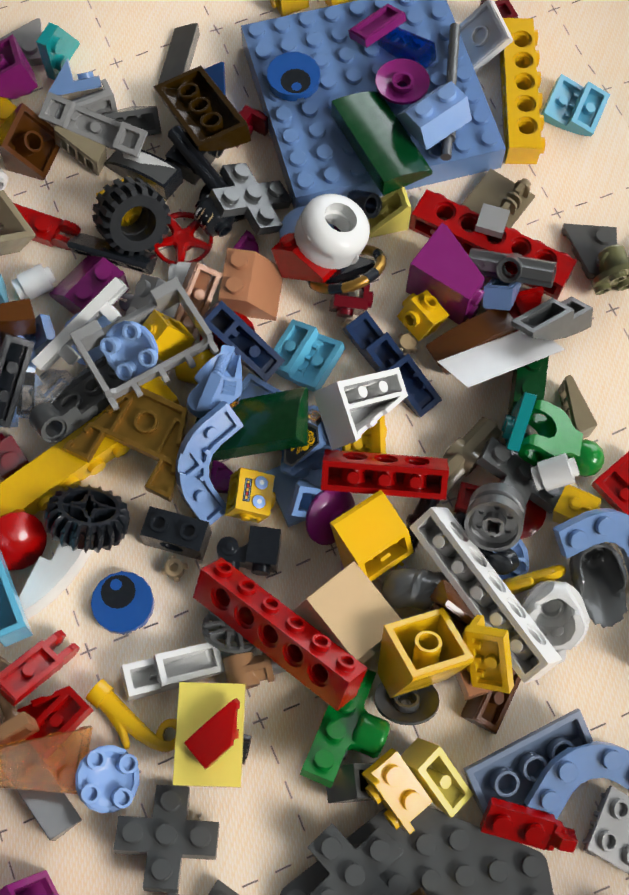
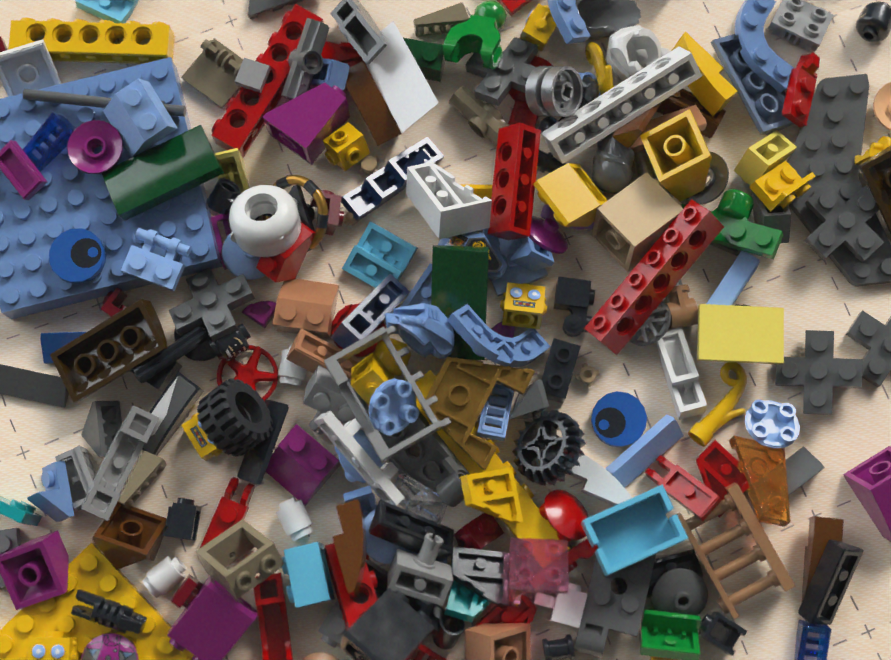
camera: 85 degrees left, 10 degrees up
(36, 454) = (493, 494): none -> yellow wing
(39, 187) = (183, 520): none -> black window
(83, 629) = (645, 450): none -> light blue slope
(136, 497) = (531, 402): none -> dark grey slope
(145, 469) = (500, 397): none -> medium blue slope
(215, 735) = (747, 325): red slope -> none
(276, 733) = (735, 280): none -> light blue slope
(283, 136) = (153, 267): none -> light blue plate
(491, 656) = (679, 98): yellow bracket -> none
(515, 425) = (465, 67): teal wing -> none
(535, 701) = (712, 88): none -> yellow slope
(555, 472) = (514, 38): white brick -> none

